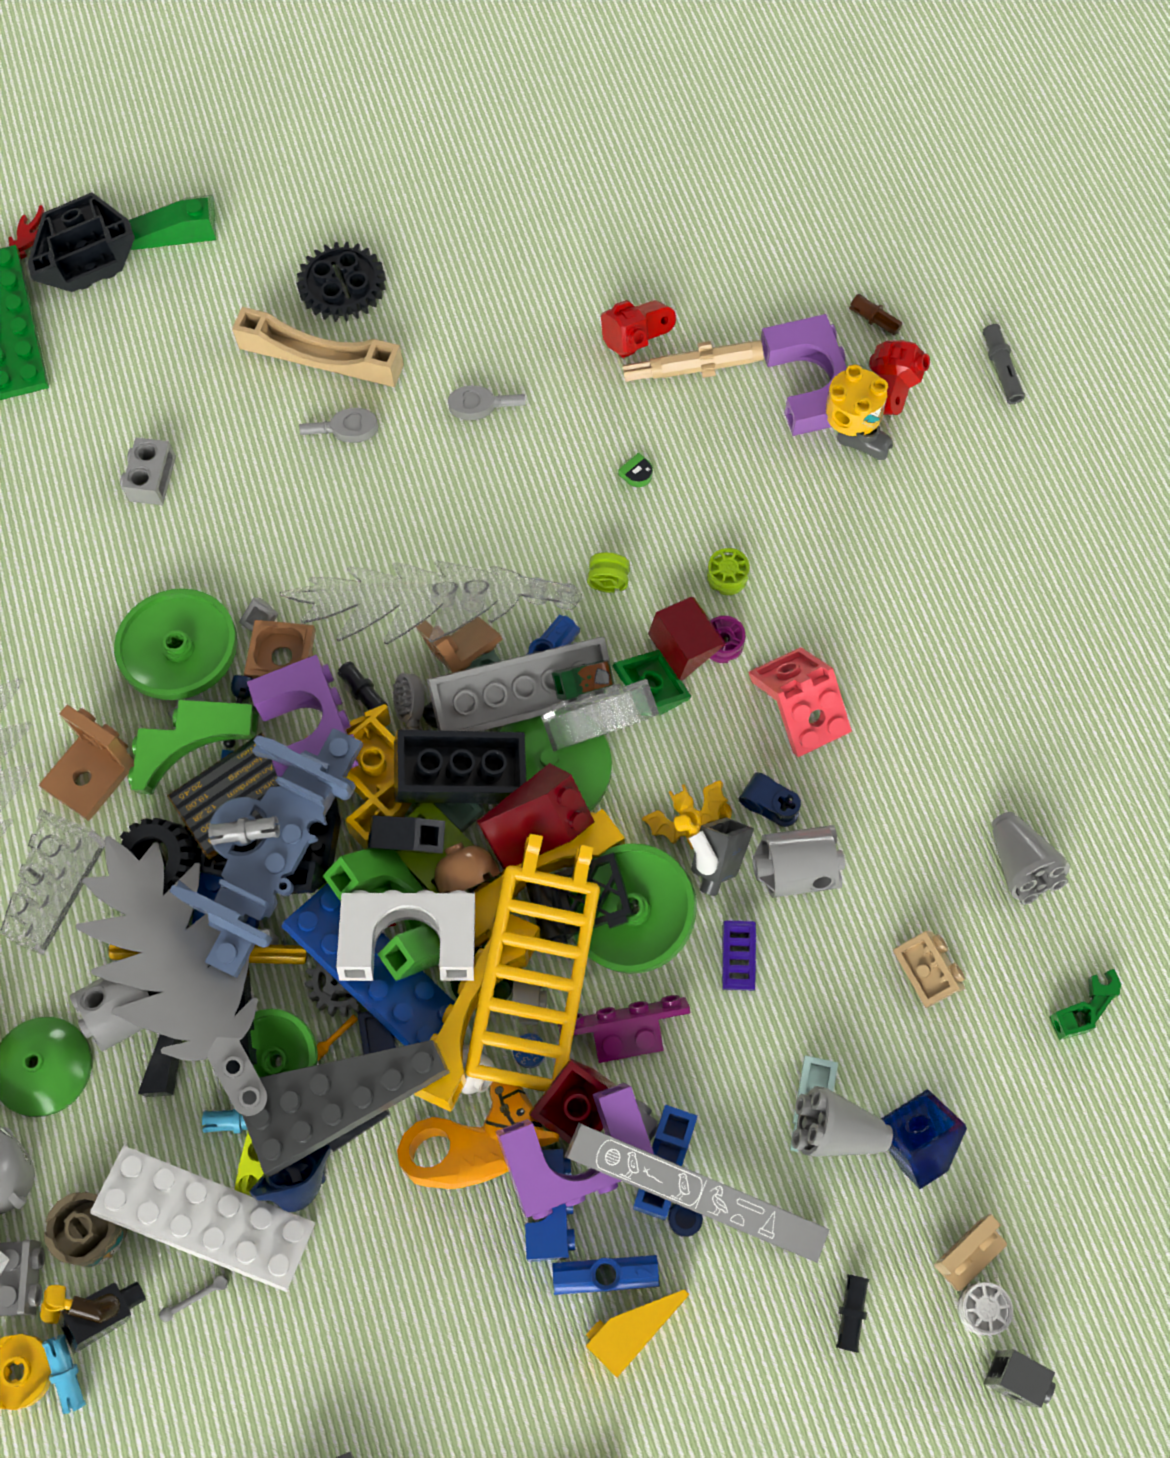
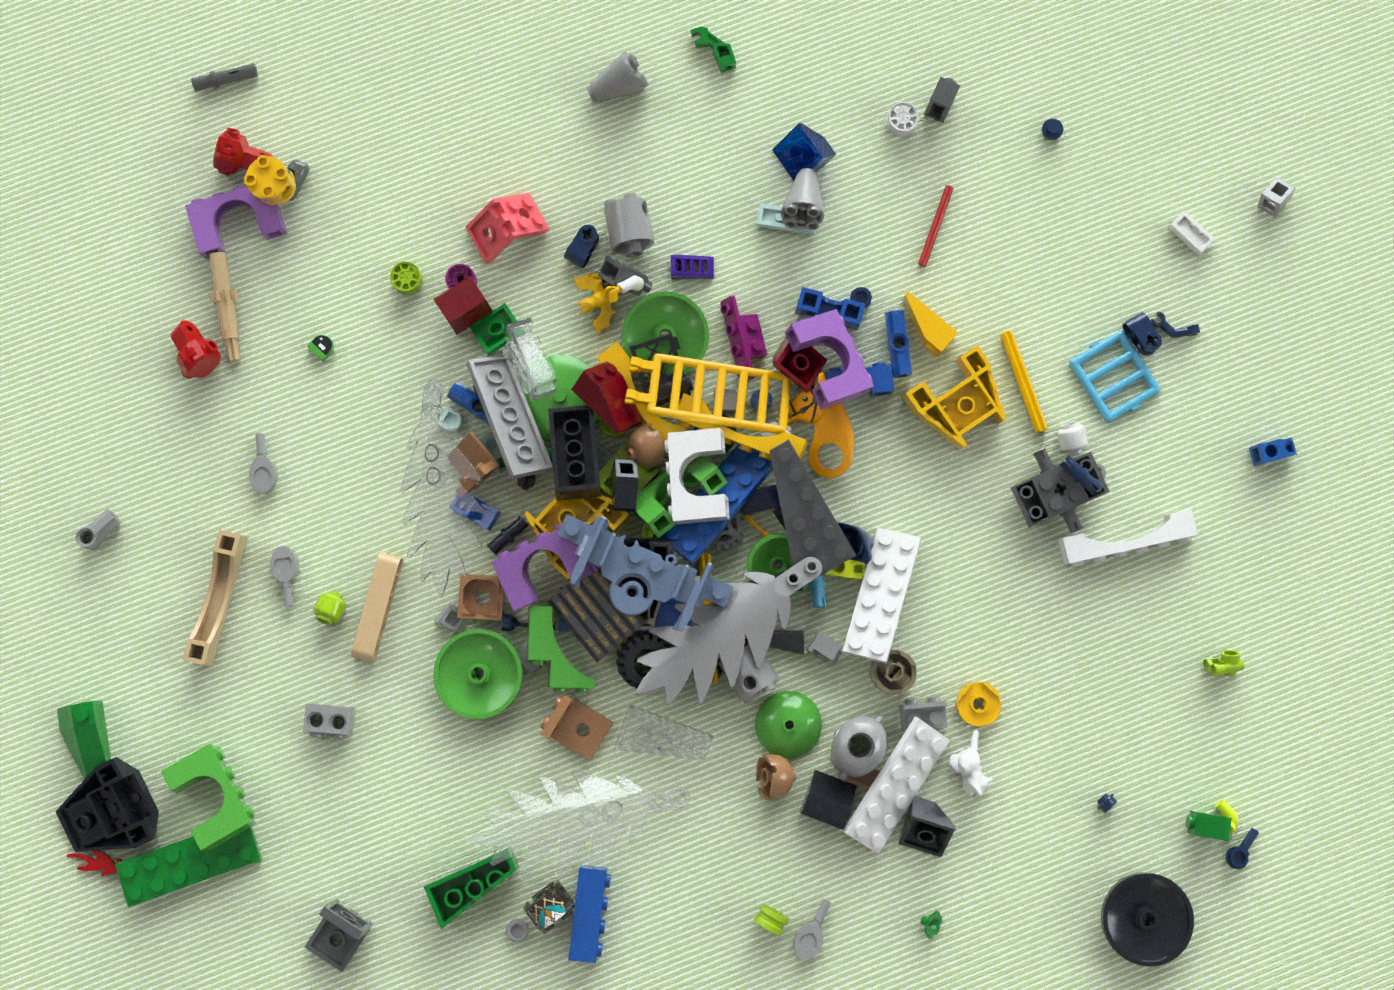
camera: 95 degrees left, 15 degrees up
(50, 364) = (234, 814): none -> bright green arch
(63, 1374) = (978, 672): medium azure pin -> none
(89, 1317) = (947, 655): torso -> none
(141, 1125) = (825, 648): none -> light grey brick
(219, 1283) = (917, 585): light grey hinge -> none
(244, 830) = (636, 587): light grey pin -> none
(285, 528) = (377, 607): none -> tan beam
(290, 473) = (329, 608): none -> lime head
(323, 290) = (156, 606): black gear -> none
(399, 655) = (486, 519): none -> blue slope
(409, 699) = (520, 499): light grey piece -> none
(418, 229) = (100, 529): none -> light grey piece
(496, 1379) = (963, 404): none -> yellow wedge
(529, 623) = (452, 417): none -> light aqua tile
(582, 679) = (502, 374): leg -> none
(608, 572) = (411, 362): lime wheel -> none
(696, 1192) = (849, 286): light grey tile -> none
(805, 1356) = (935, 226): none -> red bar
(852, 1313) = (909, 196): black pin -> none
(875, 314) = (179, 170): reddish brown axle -> none
(929, 968) = (695, 144): tan bracket -> none
(971, 1253) = (870, 126): tan bracket -> none

